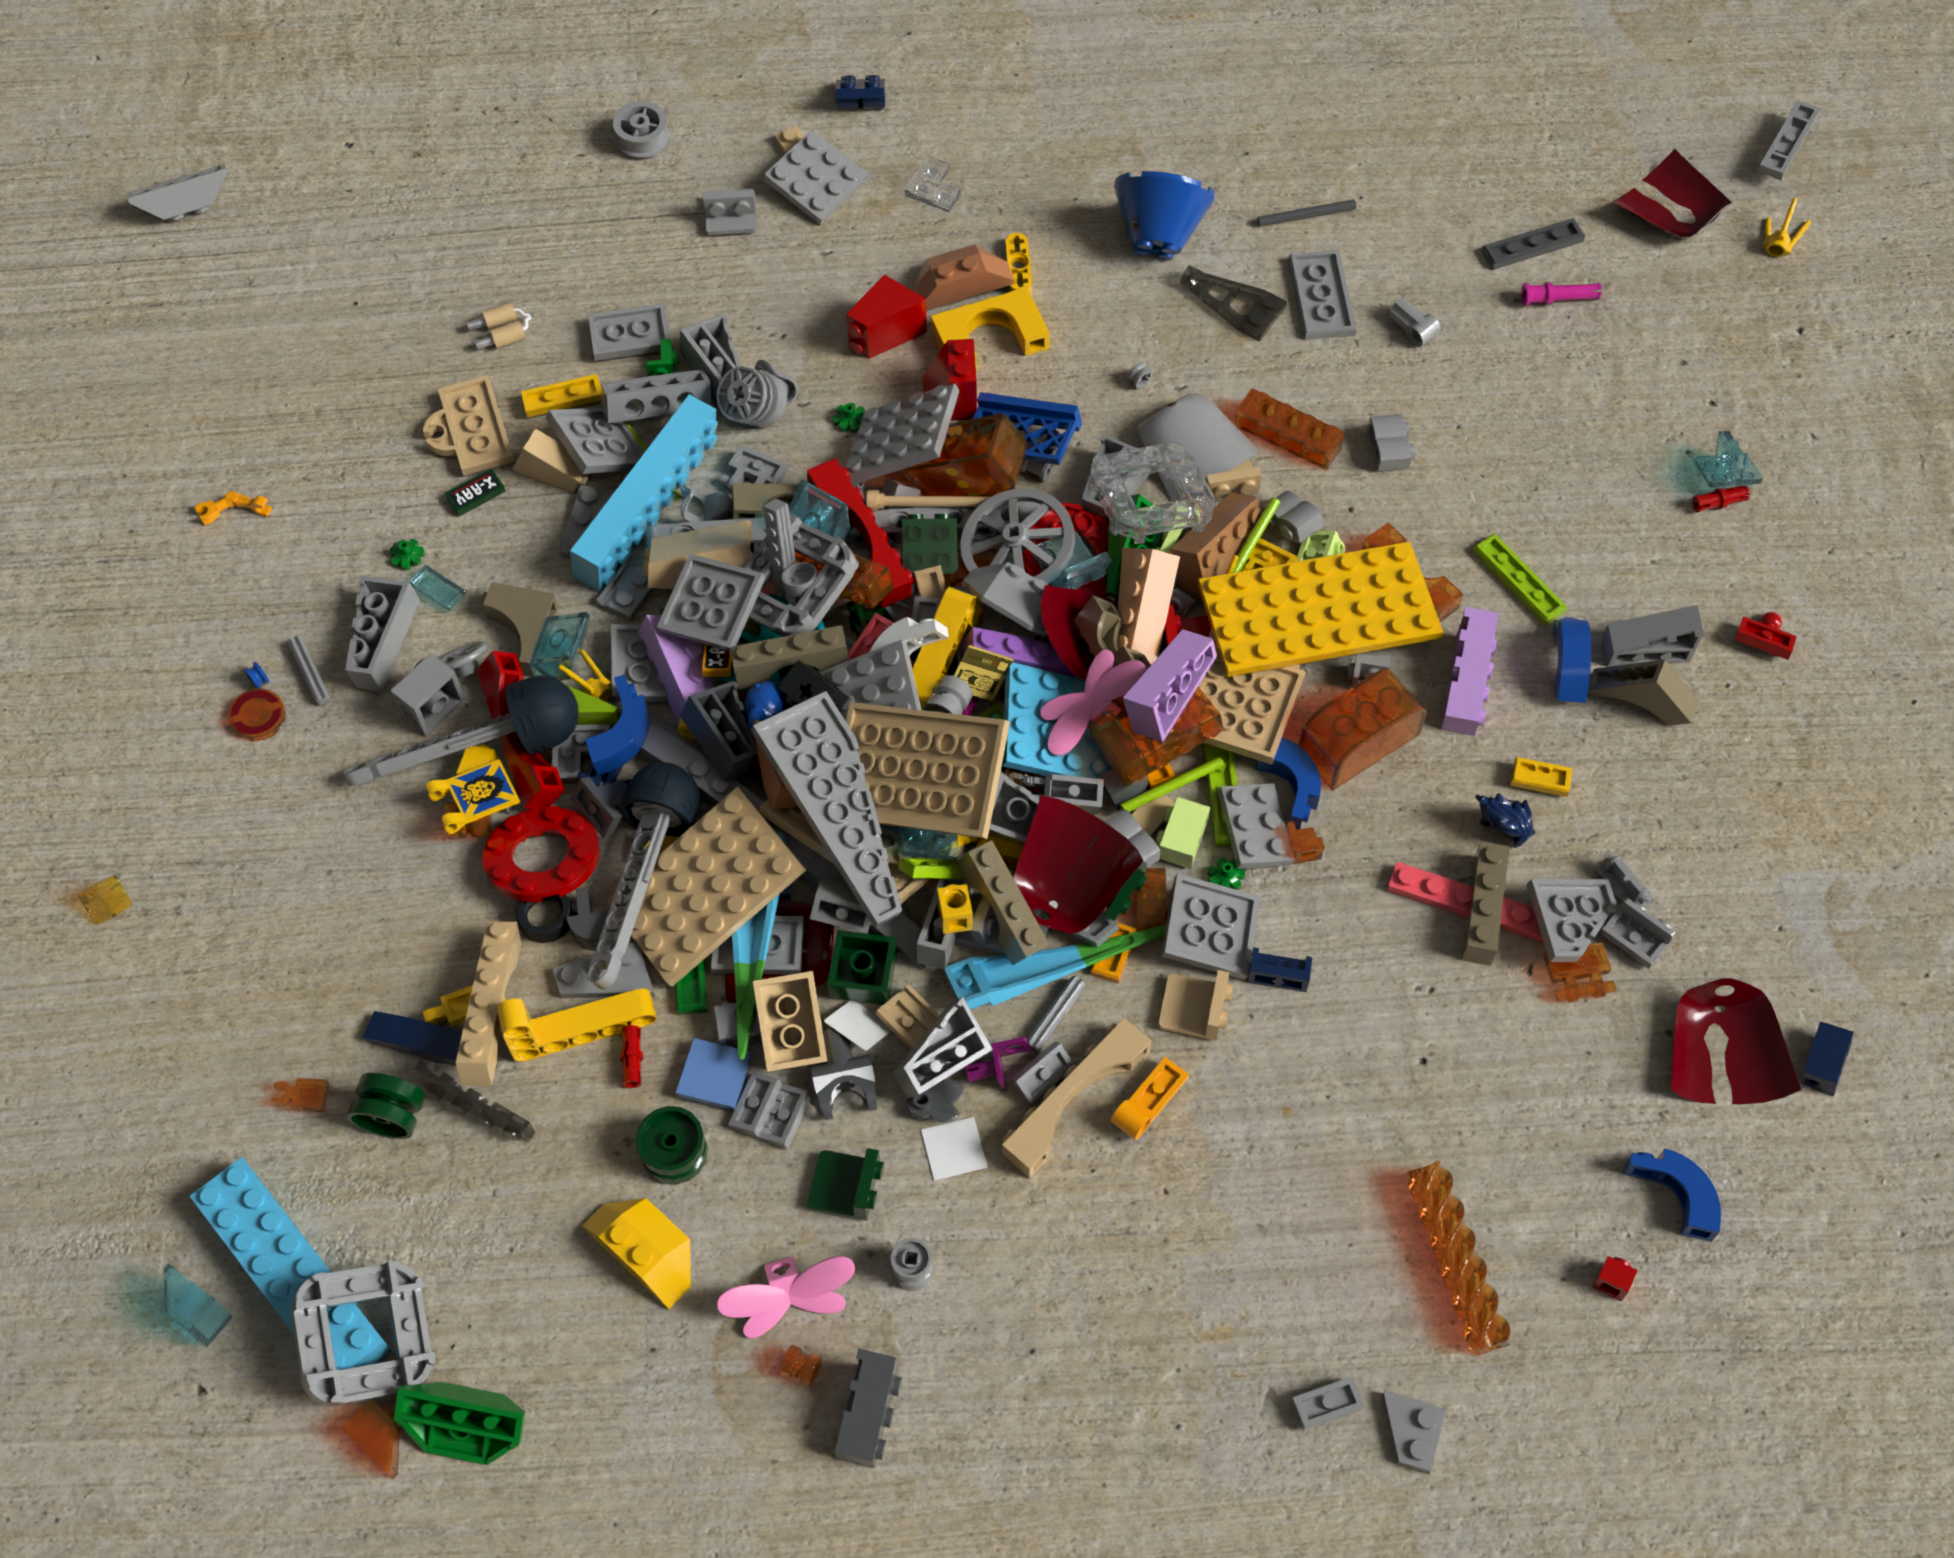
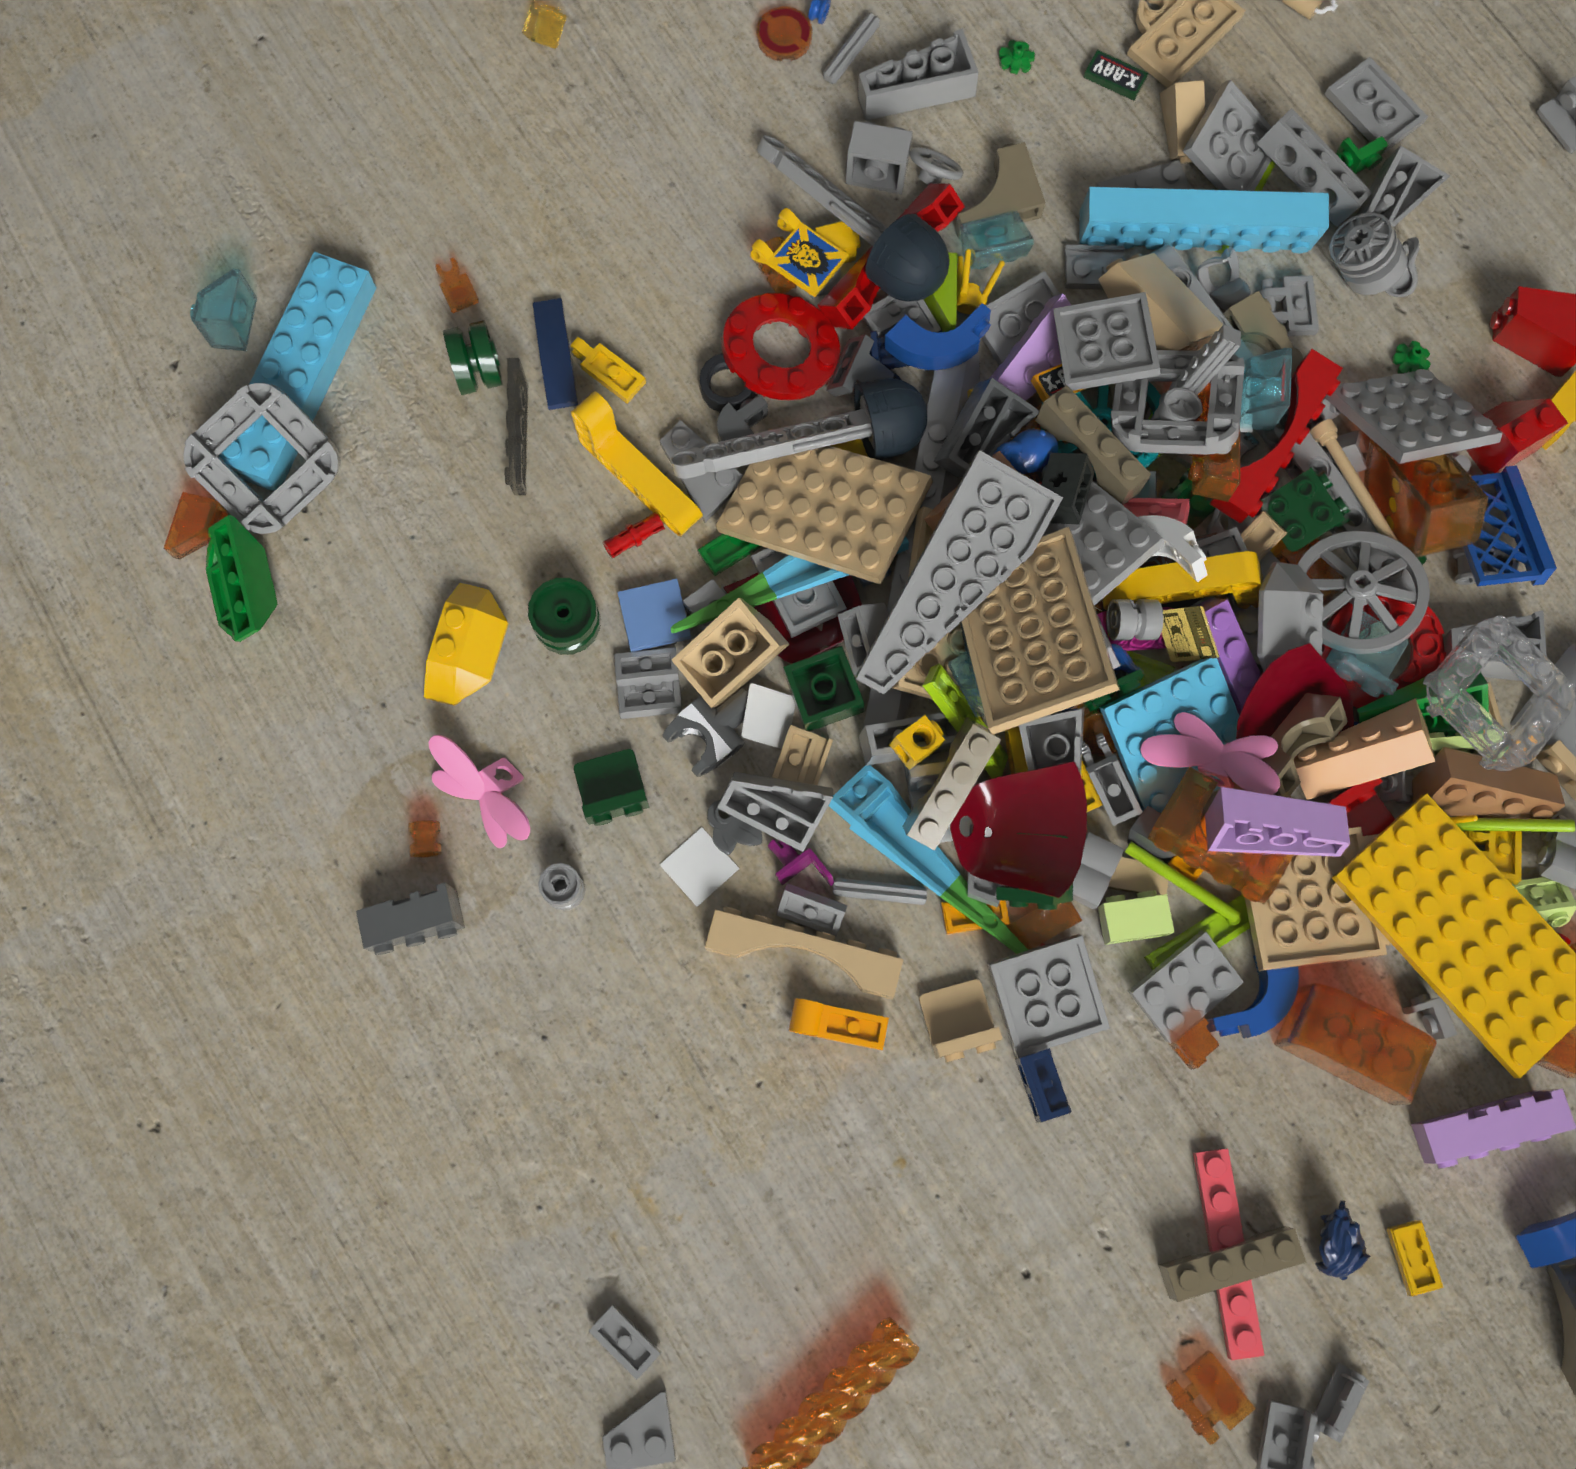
camera: 60 degrees right, 15 degrees up
(437, 588) = (996, 103): clear light blue tile -> none
(480, 1033) = (656, 368): tan arch -> none
(562, 395) = (1264, 85): yellow plate -> none
(1226, 874) = (1111, 983): green plant -> none
(1570, 913) = (1267, 1361): light grey plate -> none

